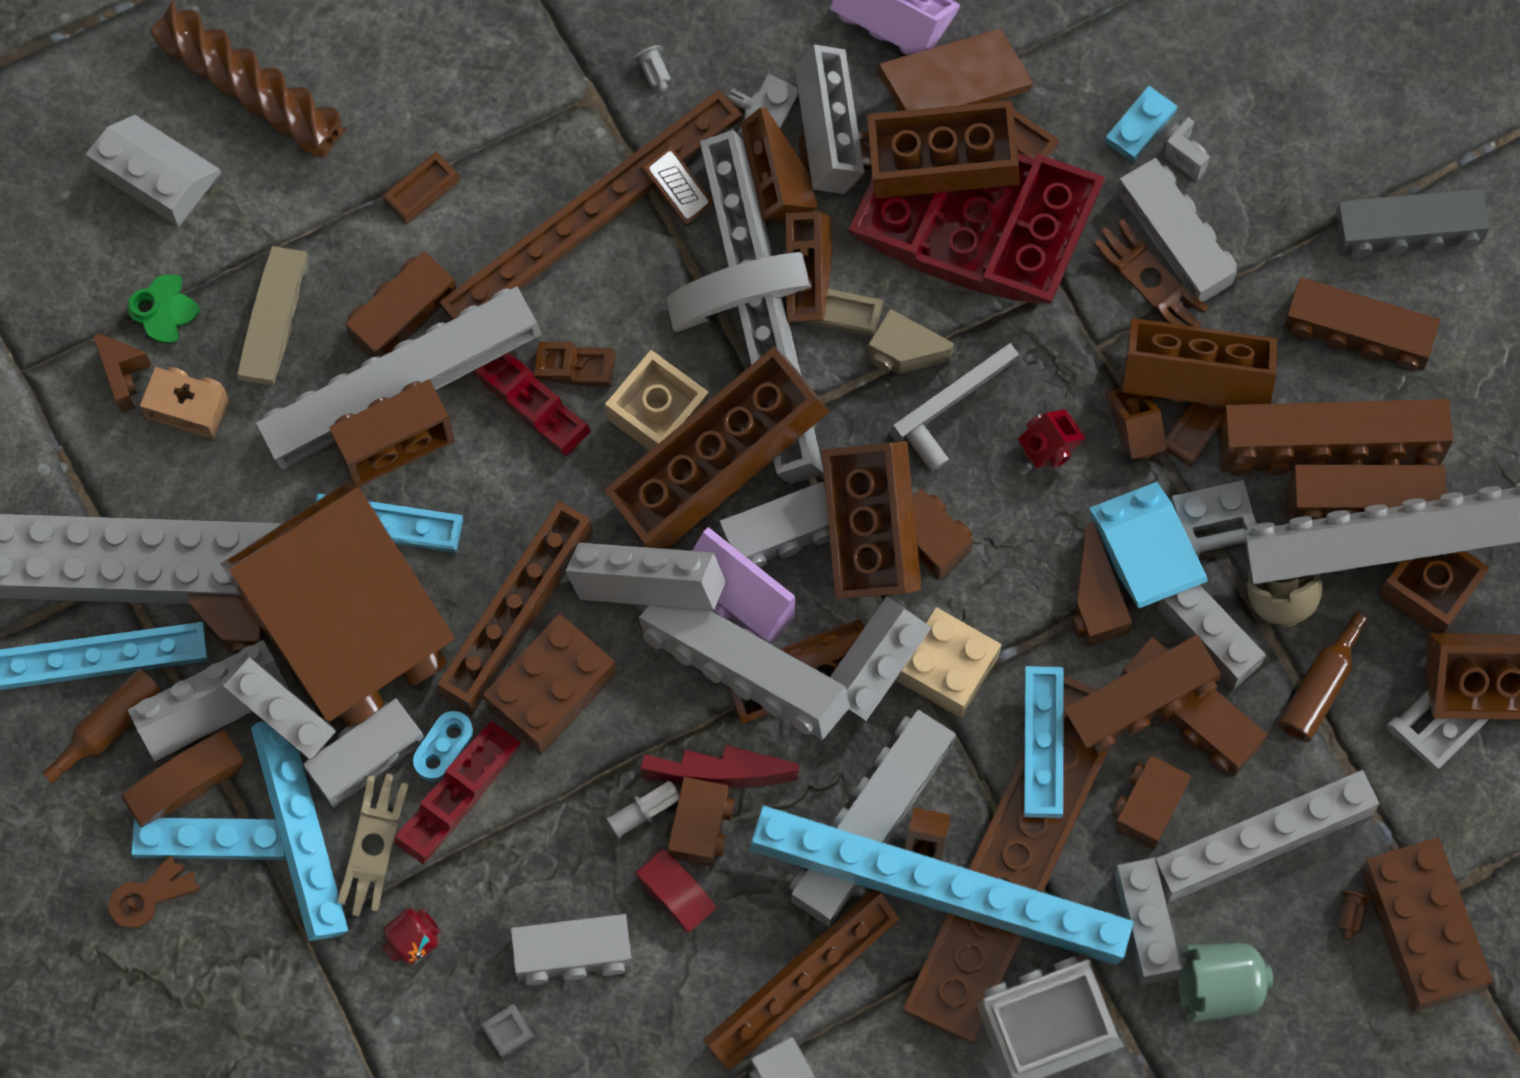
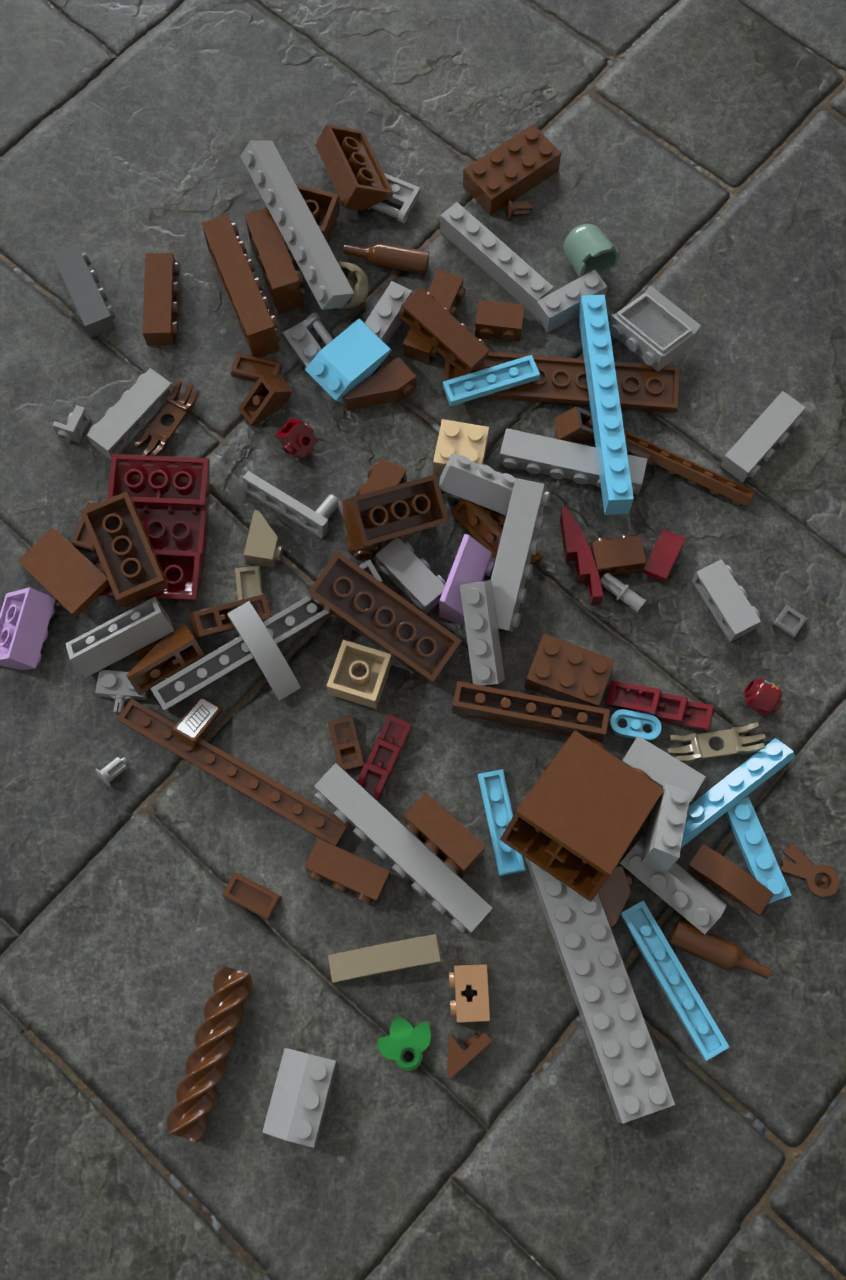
camera: 110 degrees left, 0 degrees up
(1141, 124) = (61, 459): medium azure plate -> none
(1199, 364) = (220, 368): reddish brown brick -> none

